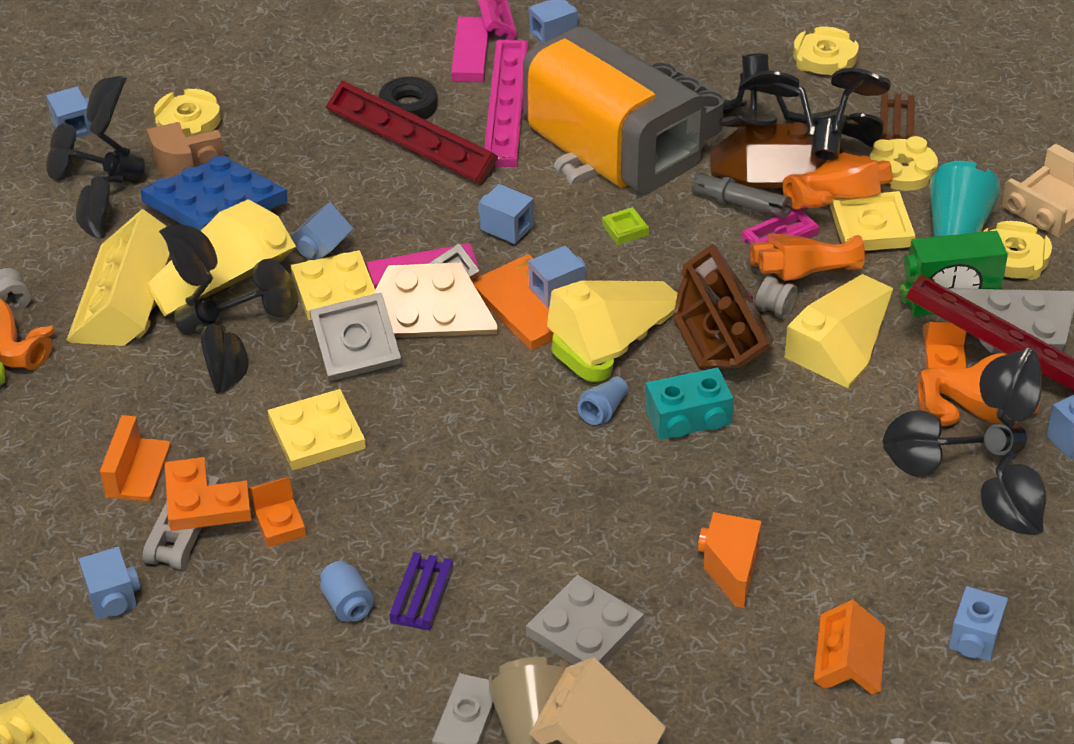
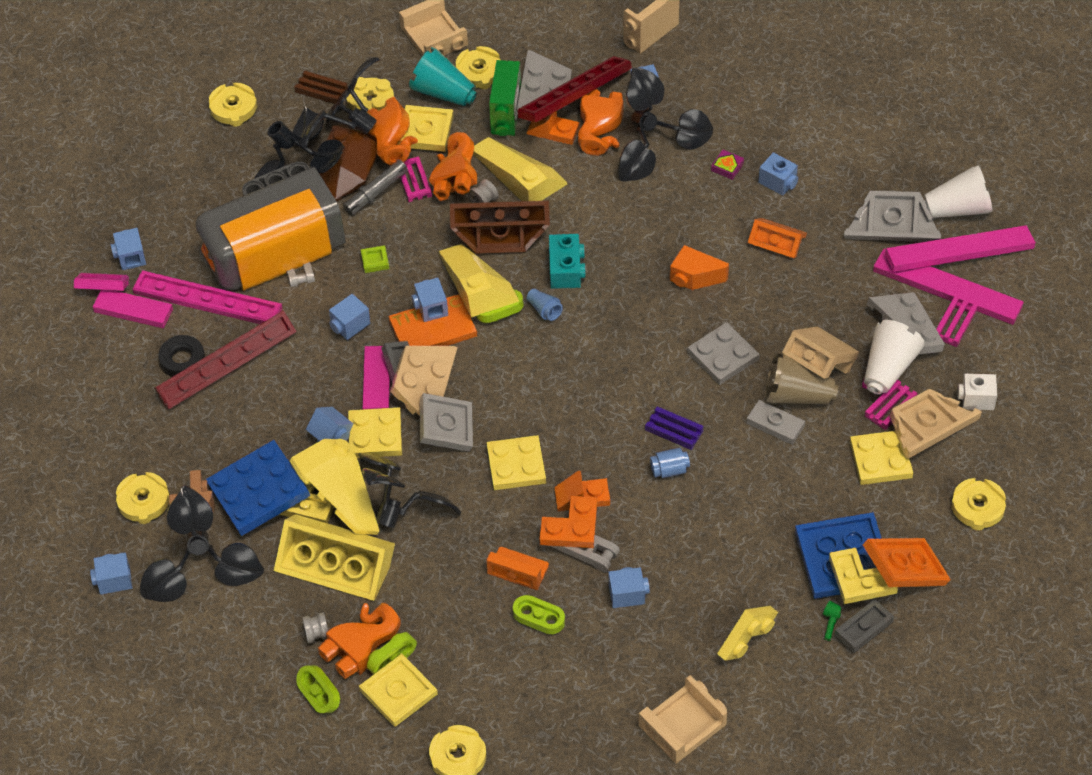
camera: 75 degrees left, 10 degrees up
(48, 506) = (540, 613): none -> lime plate
(974, 562) = (727, 164): none -> tile

